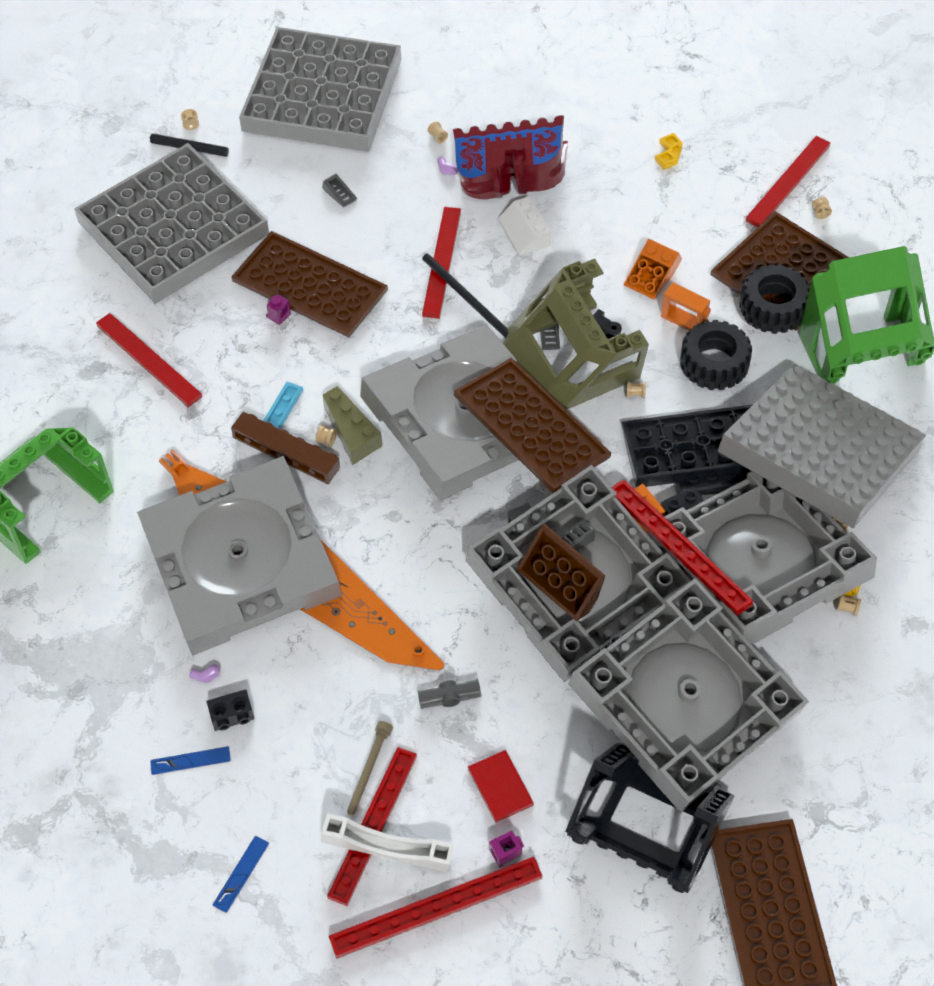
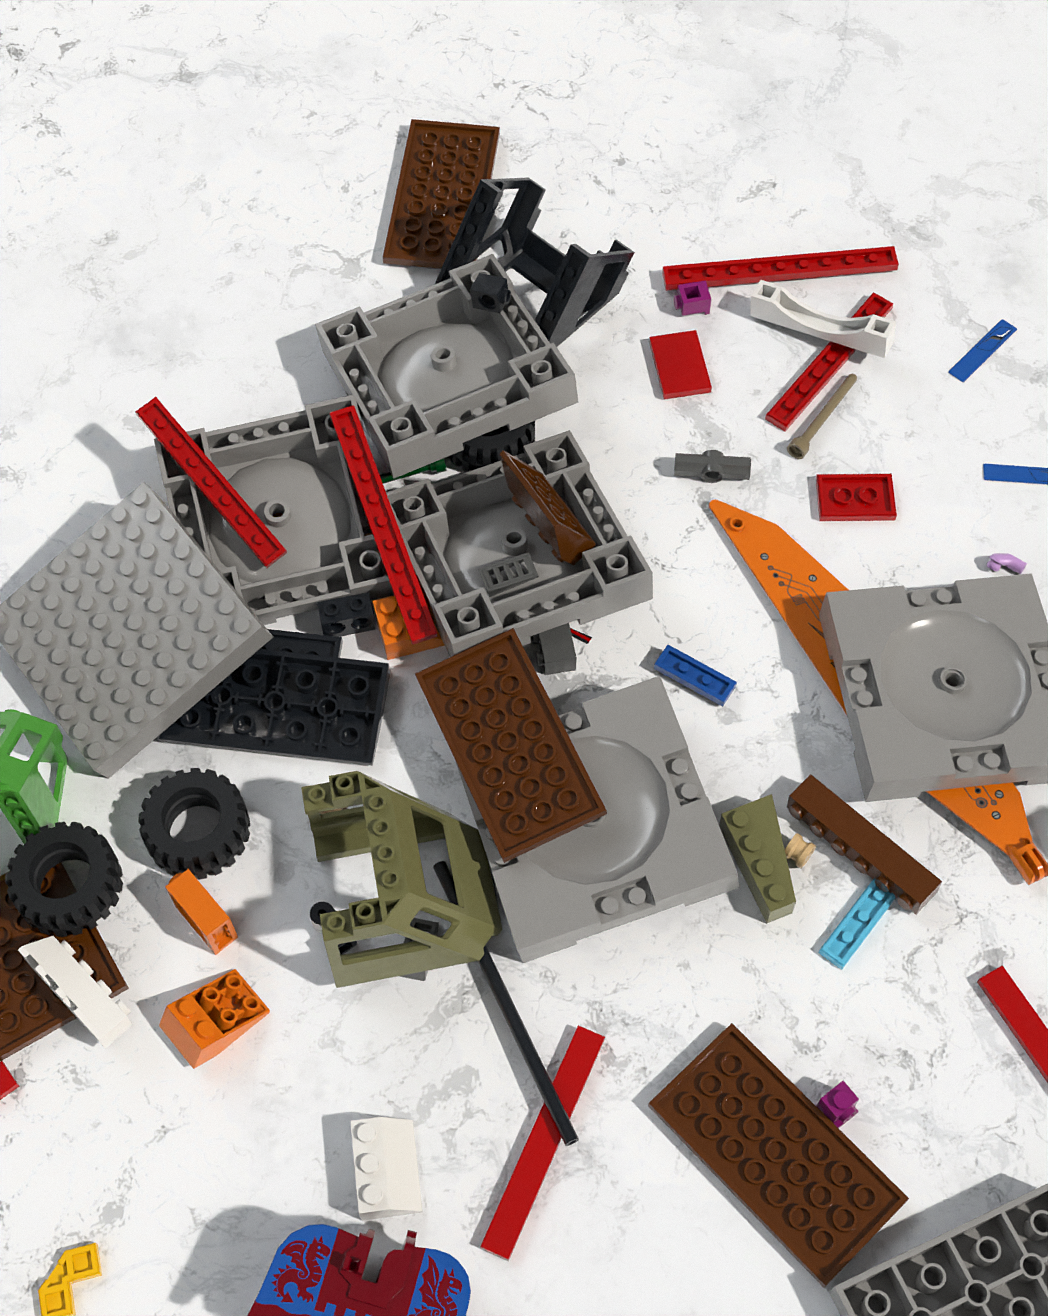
camera: 165 degrees left, 5 degrees up
(229, 704) = (979, 510): black brick -> none
(330, 701) = (855, 497): none -> red tile
(422, 530) = (695, 675): none -> blue plate
(671, 739) = (490, 293): none -> black brick
(735, 251) = (77, 989): none -> white wedge
(819, 540) = (211, 482): none -> red tile

